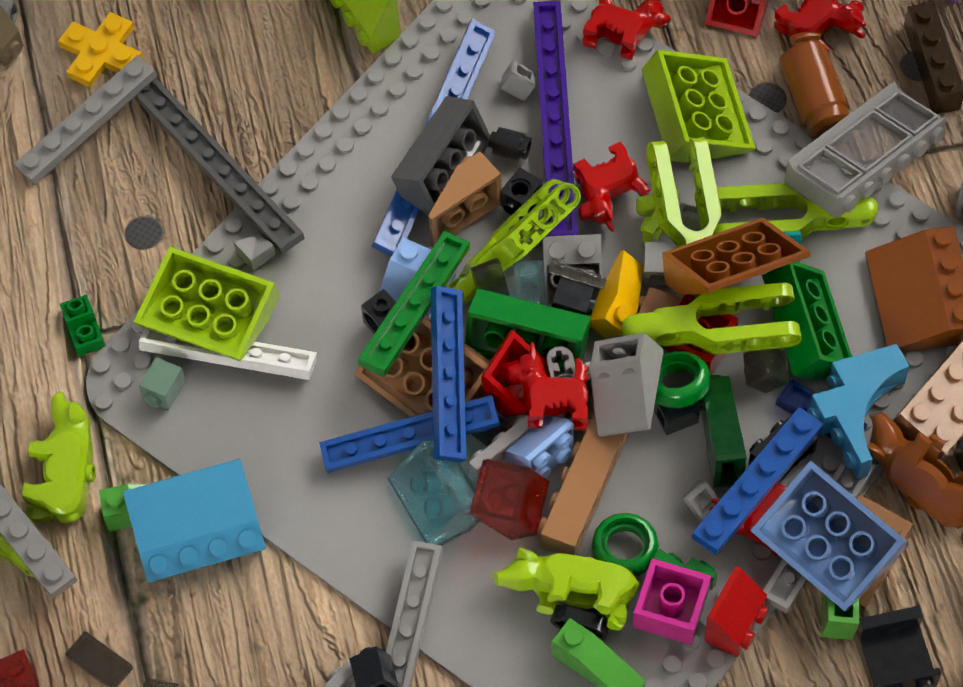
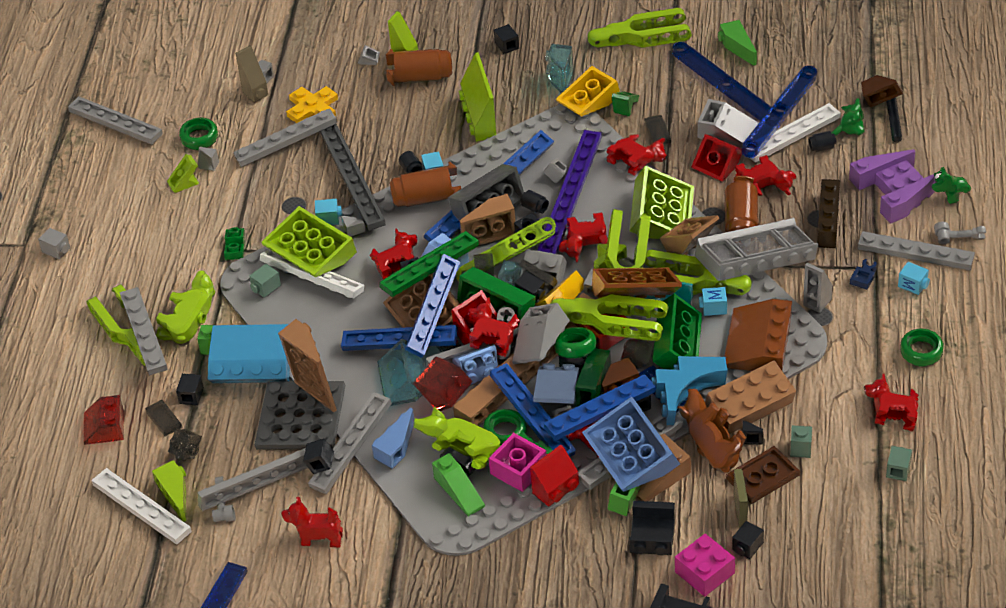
camera: 20 degrees right, 15 degrees down
(122, 602) = (189, 389): none -> black brick
(208, 238) = (328, 211): none -> medium azure brick
(294, 118) = (410, 162): none -> black brick
(310, 533) = (306, 362): none -> medium nougat slope
(333, 641) = (289, 422): none -> dark grey piece
(334, 119) = (431, 160): none -> medium azure brick
(340, 160) = (423, 186): none -> dark orange piece
(345, 292) = (390, 259): none -> red animal
(473, 620) = (393, 444): none -> medium blue slope
(654, 508) = (523, 402): none -> blue plate
(679, 458) = (556, 383): none -> sand blue slope
(758, 413) = (619, 374): none -> reddish brown slope
(764, 150) = (685, 234): none -> medium nougat slope
(837, 249) = (713, 301): none -> medium azure brick

